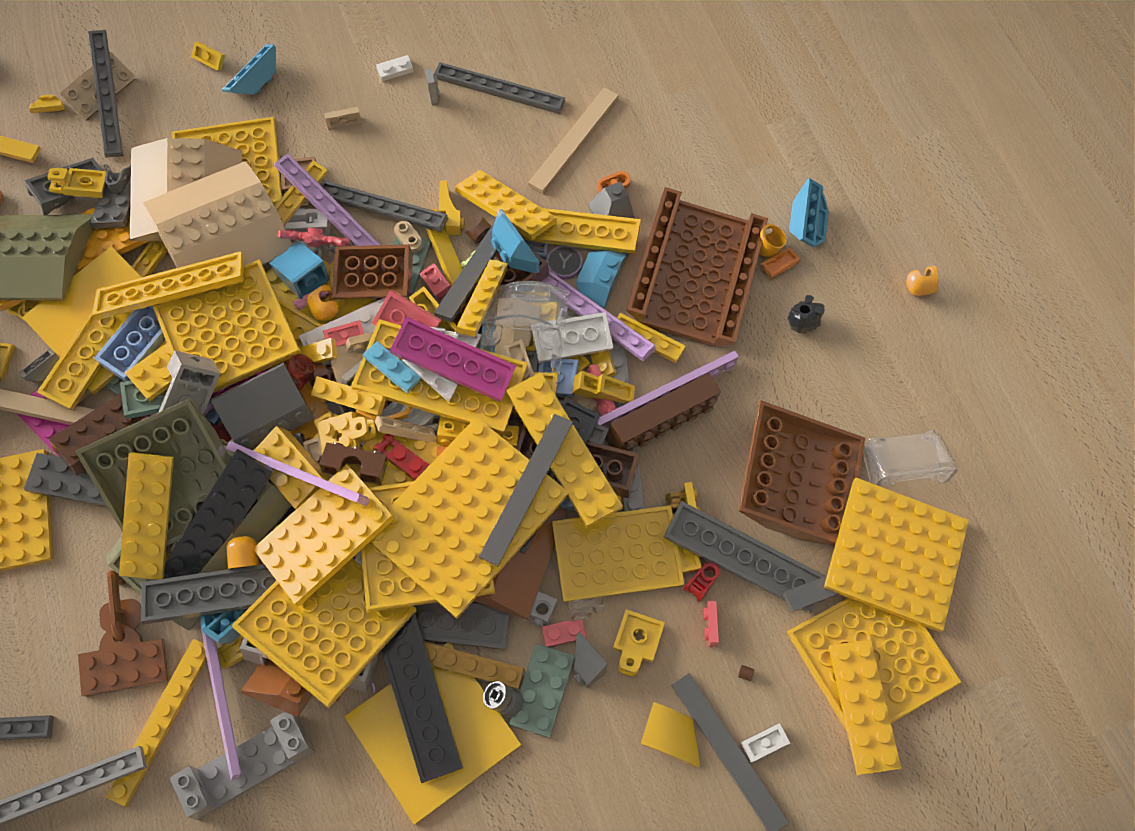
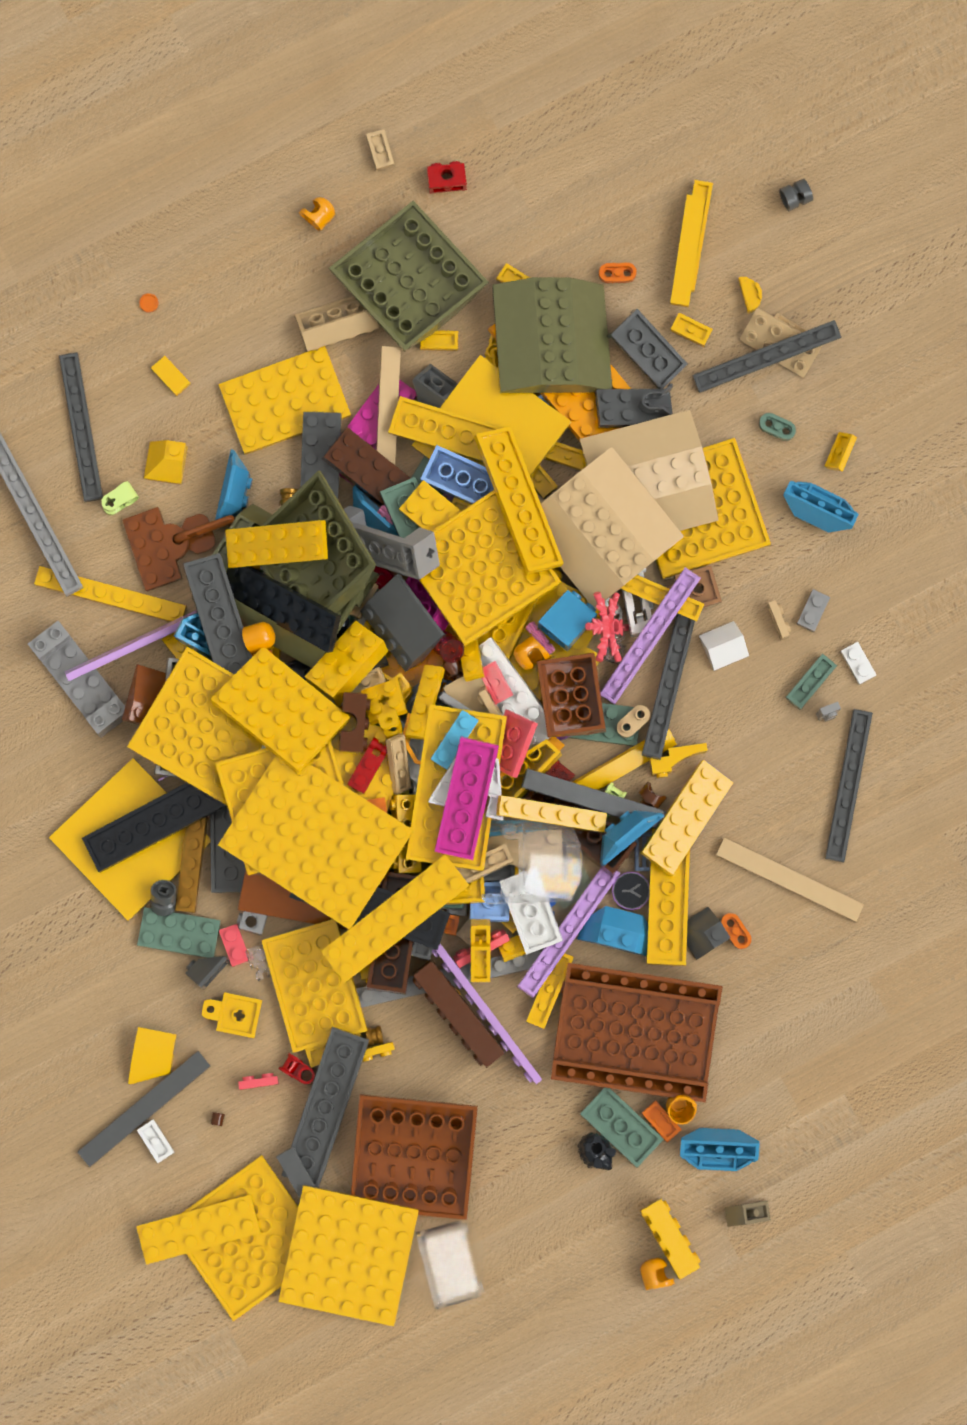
camera: 80 degrees right, 15 degrees up
(32, 640) = (166, 461): none -> yellow slope
(57, 696) = (122, 496): none -> yellowish green piece
(63, 151) = (691, 329): none -> yellow plate
(77, 182) = (643, 355): yellow plate -> none
(80, 570) = (234, 488): none -> dark azure wedge
(105, 519) = (285, 494): none -> pearl gold wheel
(171, 98) = (778, 425): none -> sand green plate
(301, 474) = (332, 673): lavender tile -> none
(341, 94) = (813, 610): none -> light grey plate
(355, 161) = (724, 645): none -> white slope
(403, 101) = (811, 681): none -> sand green plate
(435, 281) = (586, 760): coral plate -> none
(525, 490) = (344, 889): dark grey tile -> none
(781, 294) = (621, 1126): none -> sand green plate
(869, 205) = (747, 1213): none -> dark tan slope
(887, 266) = (669, 1238): none -> yellow wedge

